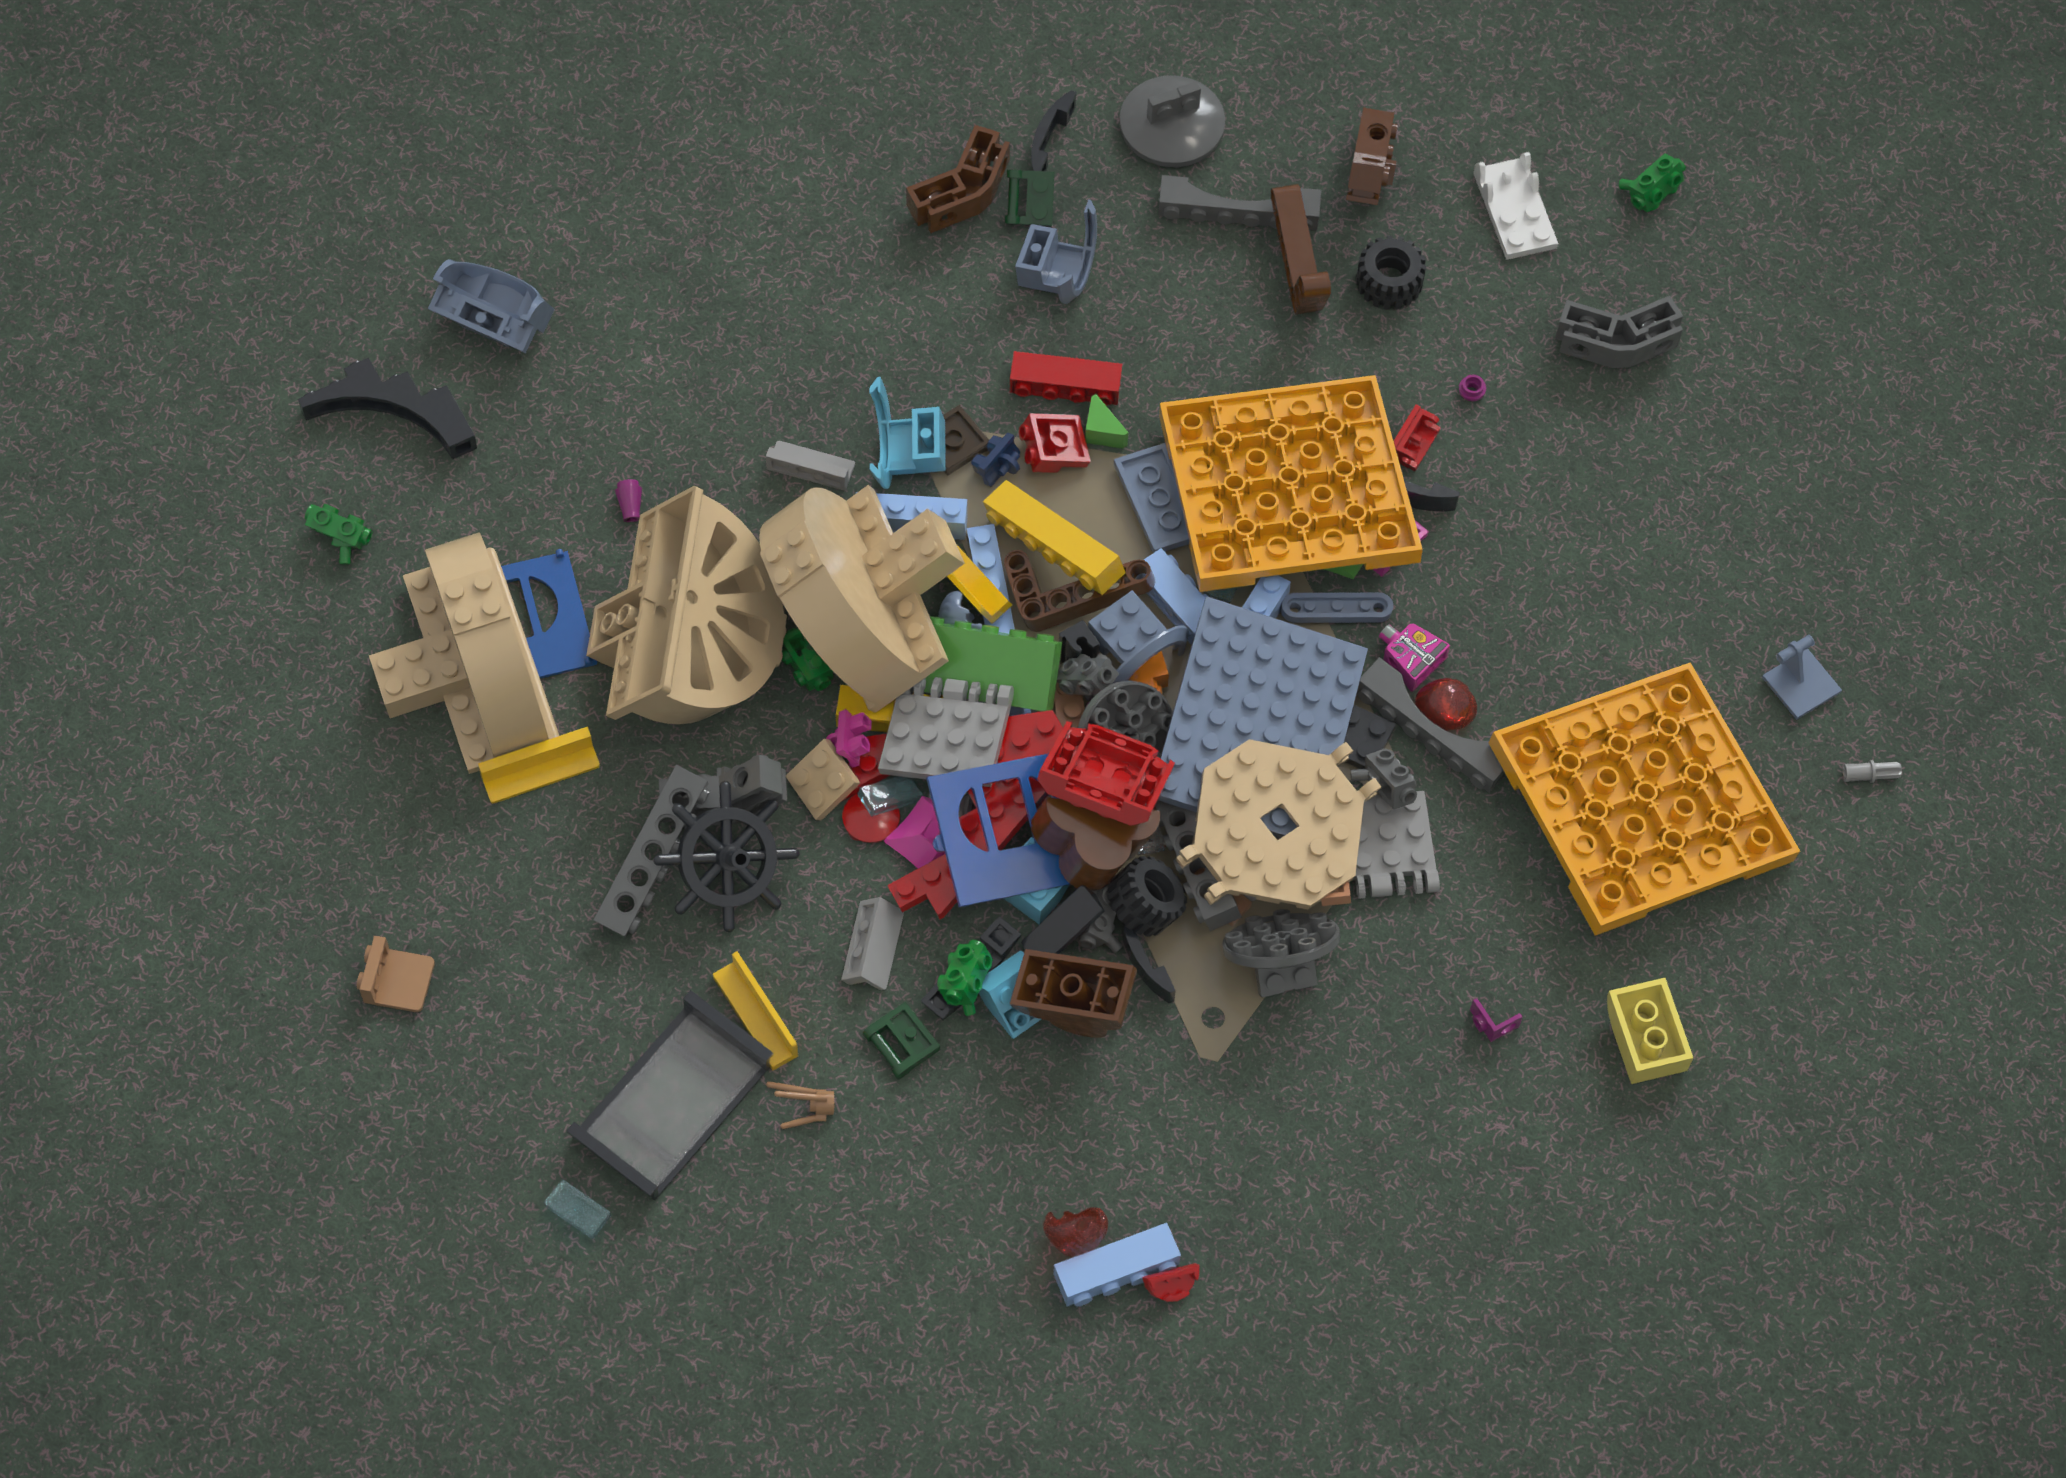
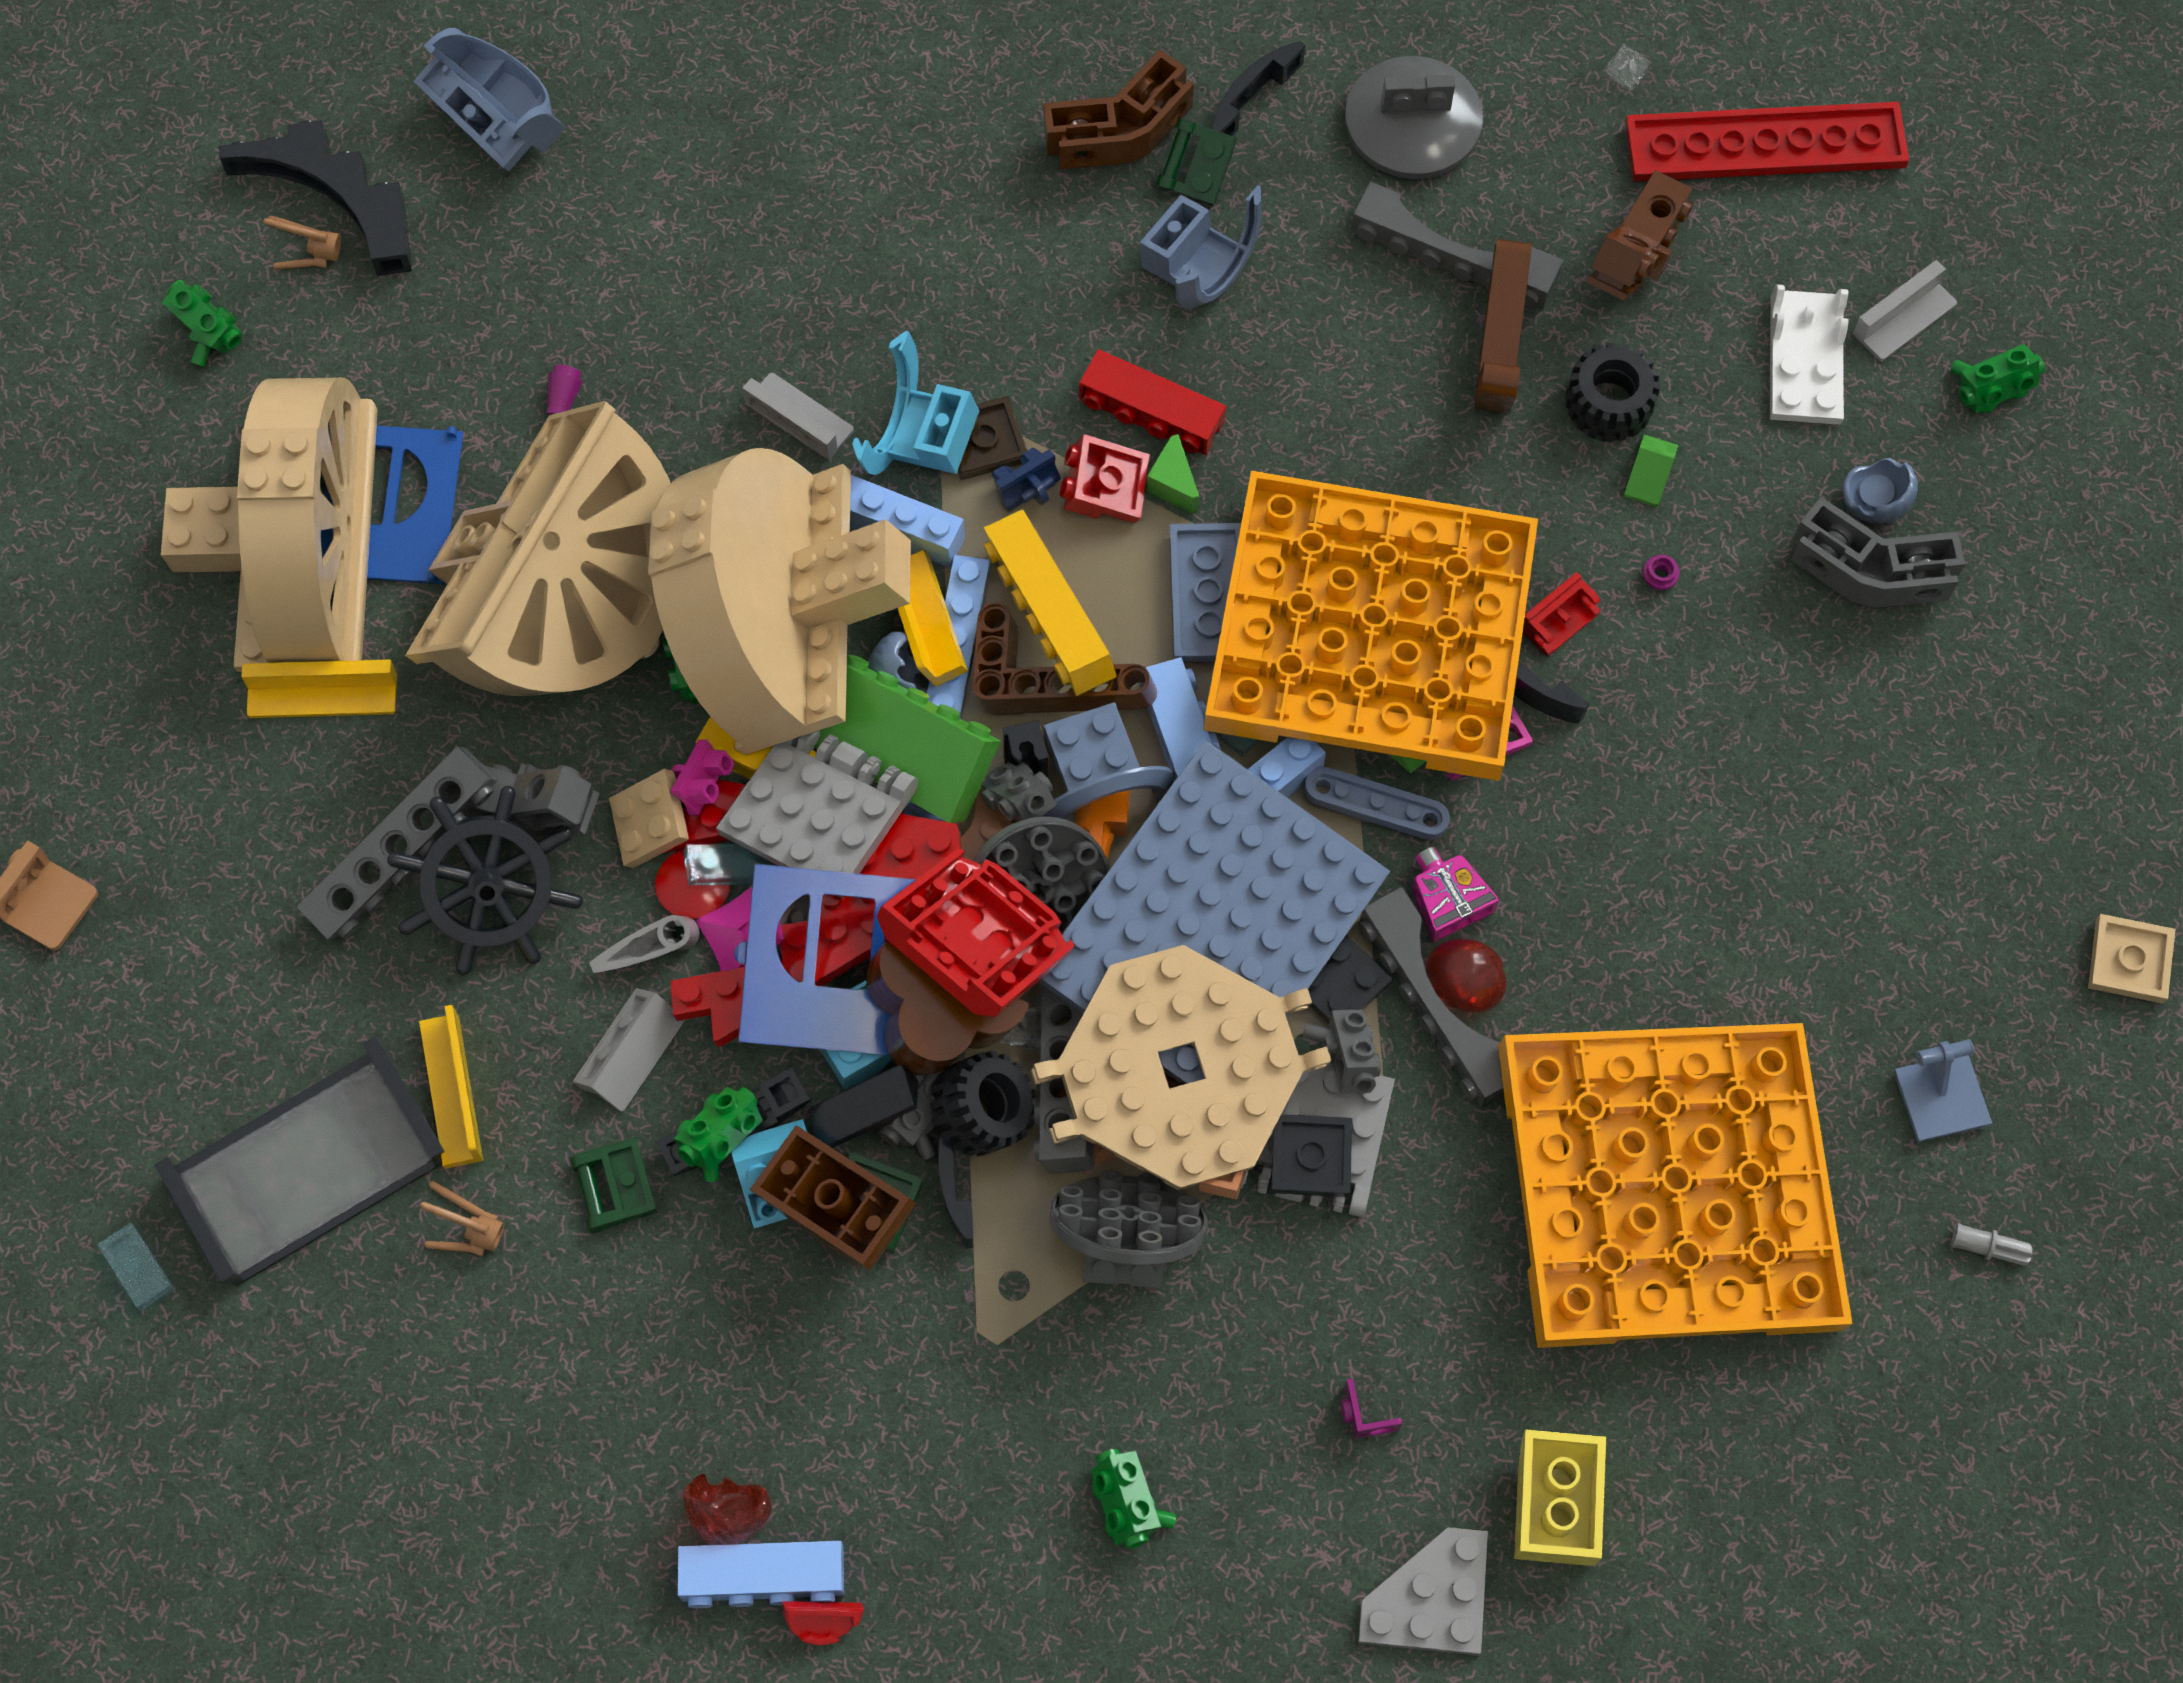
camera: 20 degrees right, 5 degrees up
(403, 448) = (320, 243): none -> medium nougat plant
(856, 867) = (648, 944): none -> light grey piece
(1311, 41) = (1628, 67): none -> clear tile
(1351, 1131) = (1127, 1499): none -> green brick
(1390, 858) = (1312, 1156): none -> black plate
(1429, 65) = (1767, 141): none -> red plate
(1438, 319) = (1650, 470): none -> bright green slope
(1572, 157) = (1905, 313): none -> light grey panel
(1586, 1128) = (1432, 1598): none -> light grey plate
(1604, 285) = (1880, 491): none -> sand blue piece
(1893, 550) = (2131, 958): none -> tan plate

